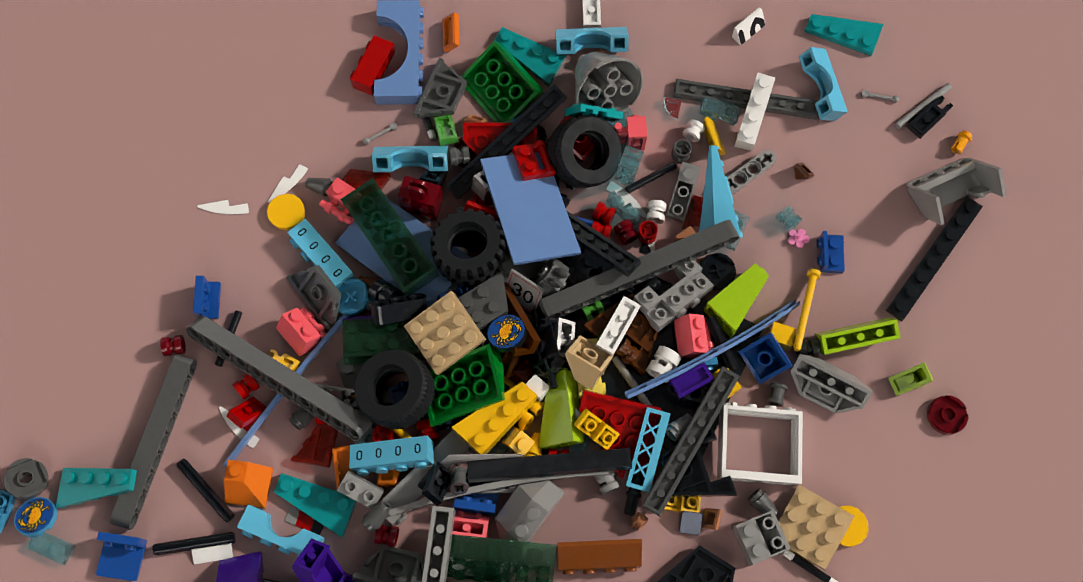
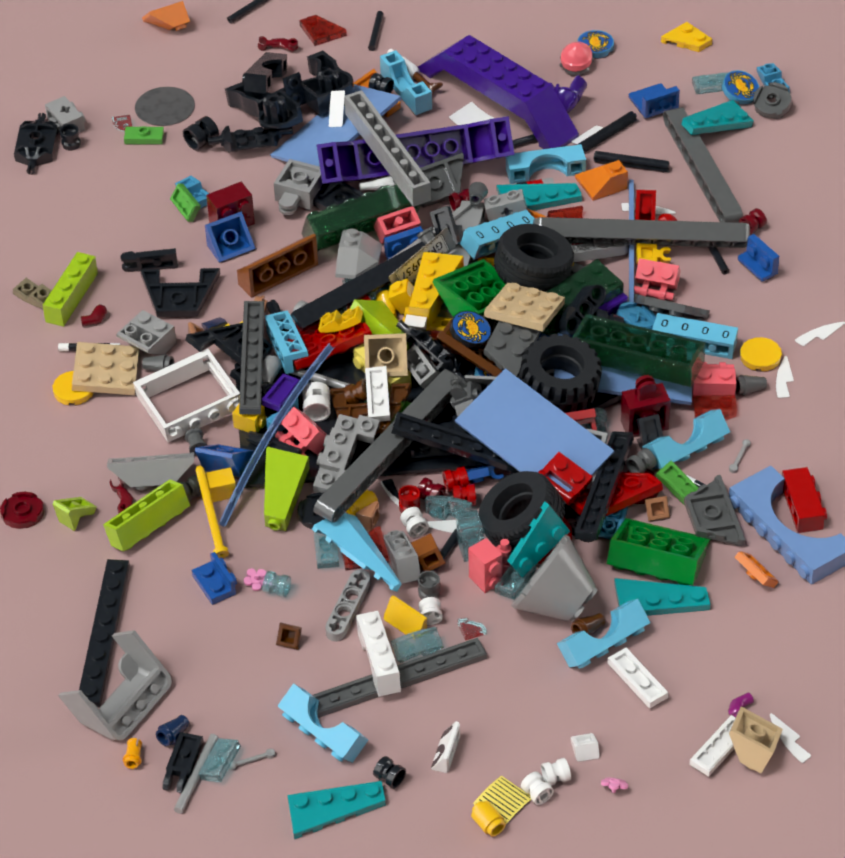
camera: 150 degrees right, 25 degrees down
(666, 174) = (428, 552): none -> dark orange brick
(797, 28) = (388, 771): none -> black wheel
(863, 367) = (123, 494): none -> dark red arm
(904, 103) = (219, 760): none -> clear light blue plate
(927, 142) = (168, 732): none -> dark blue cone

